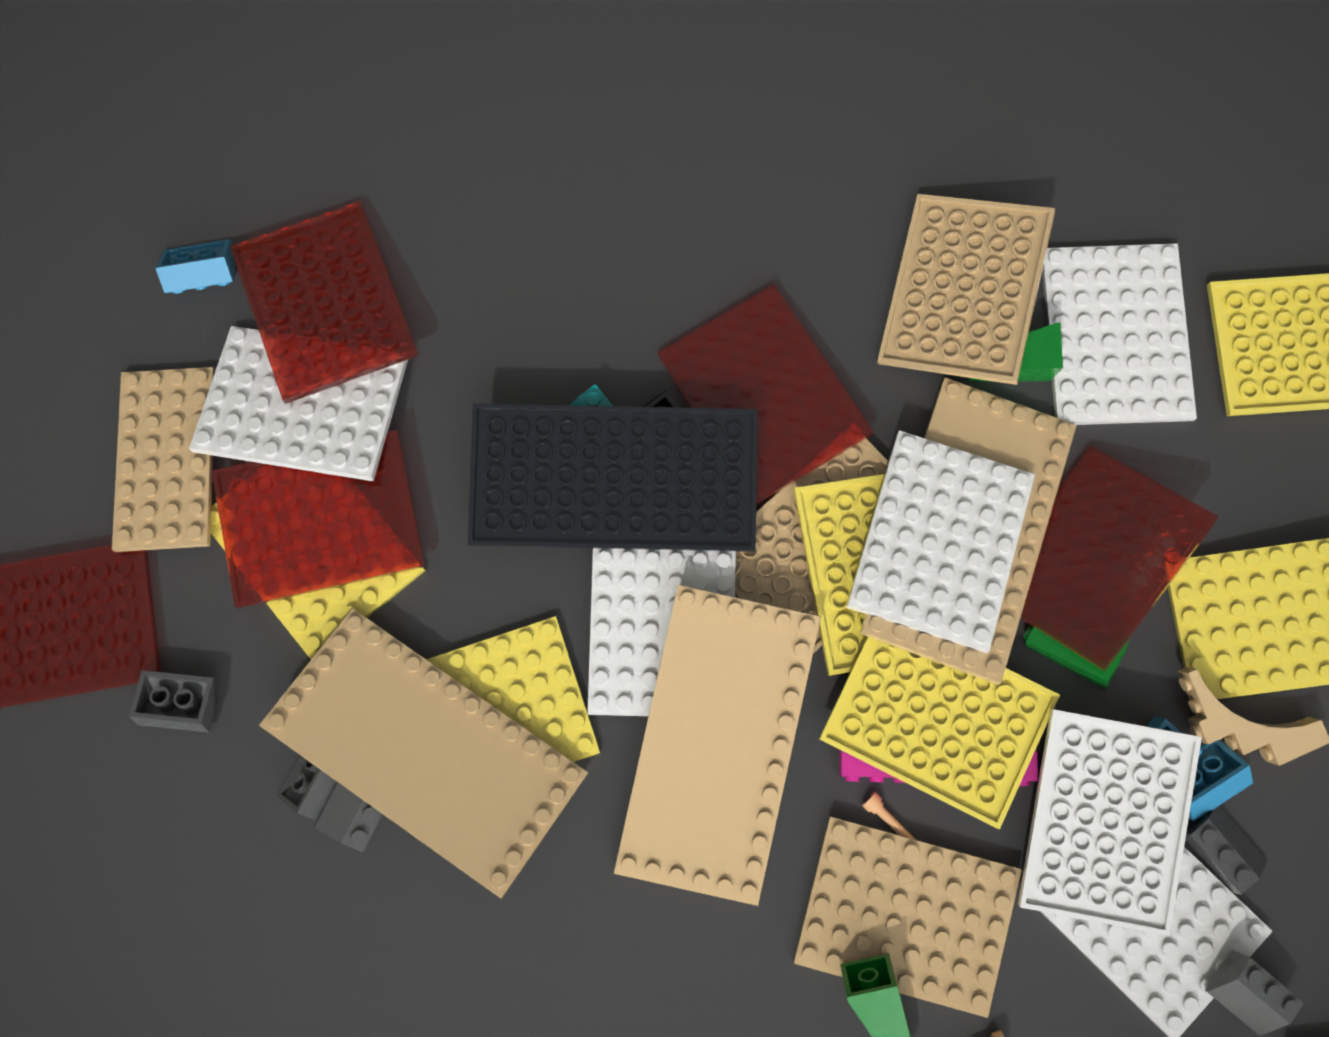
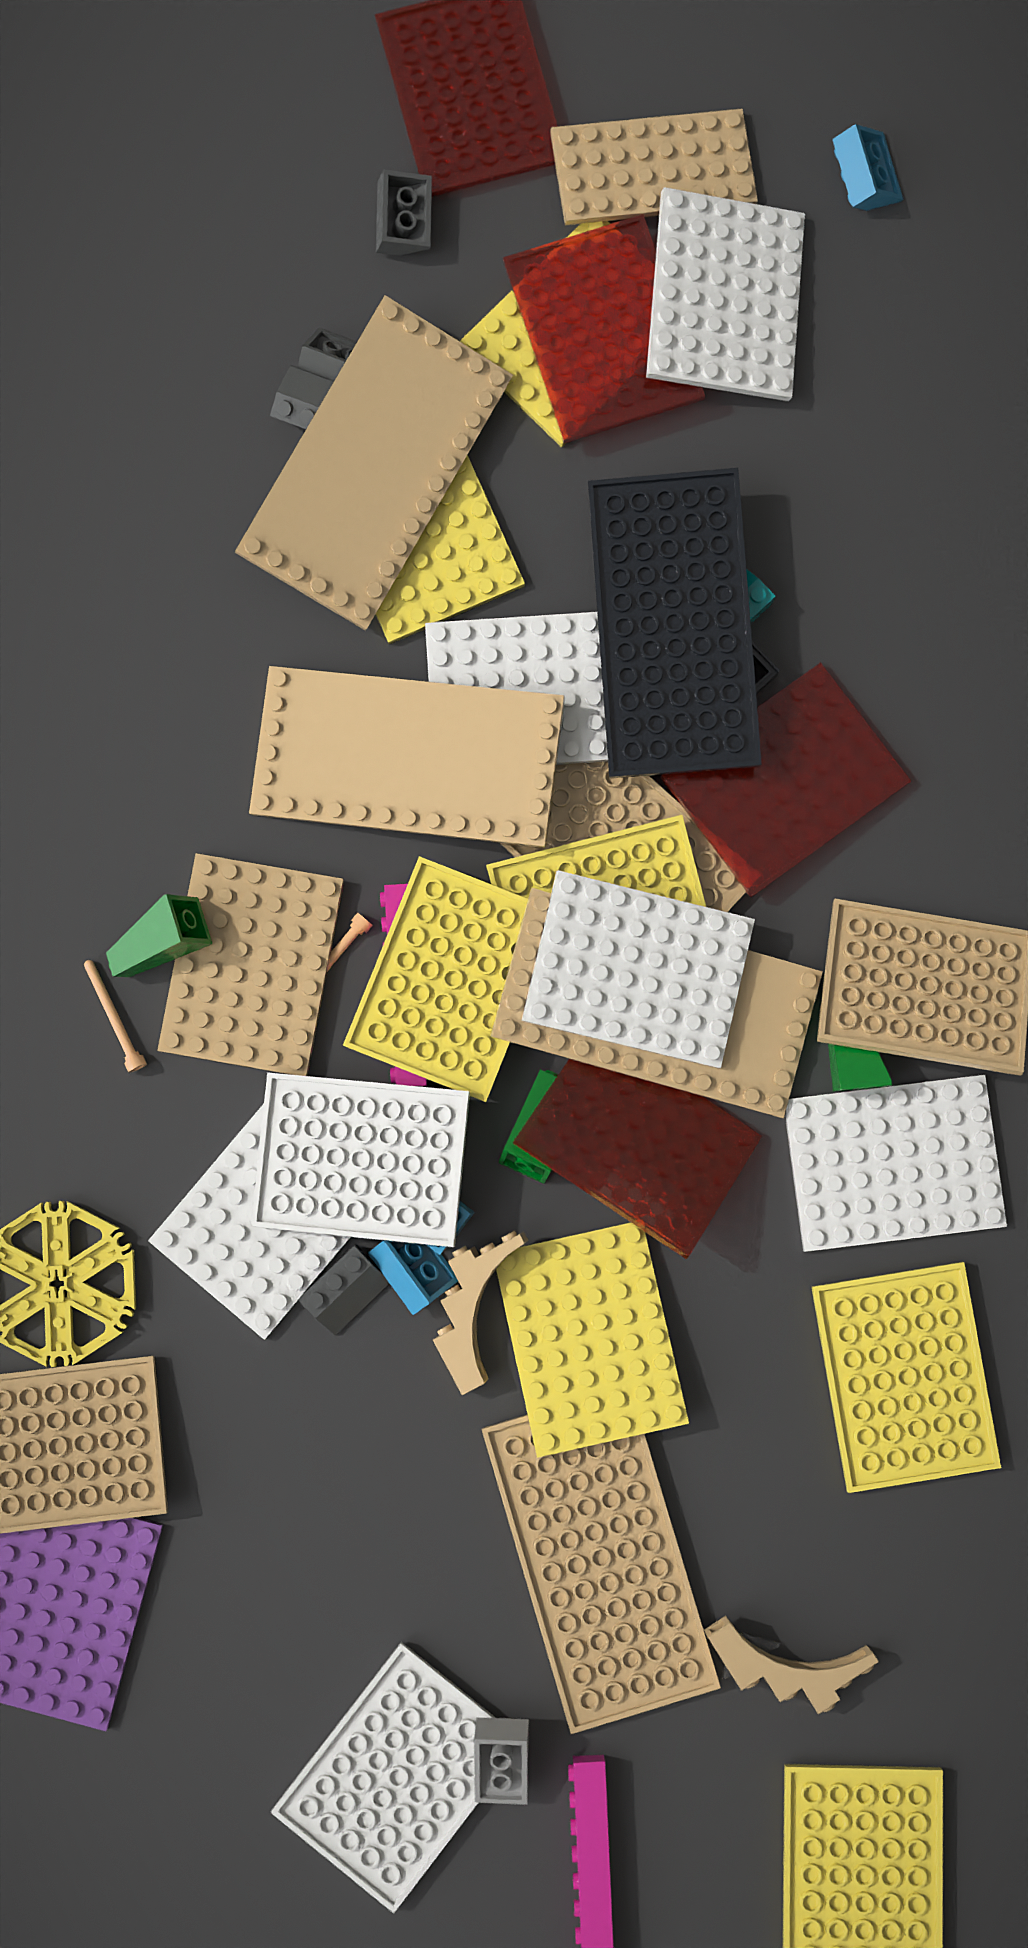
camera: 85 degrees right, 5 degrees up
(323, 302) = (839, 303): clear red plate -> none
(1253, 994) = (199, 1316): dark grey slope -> none

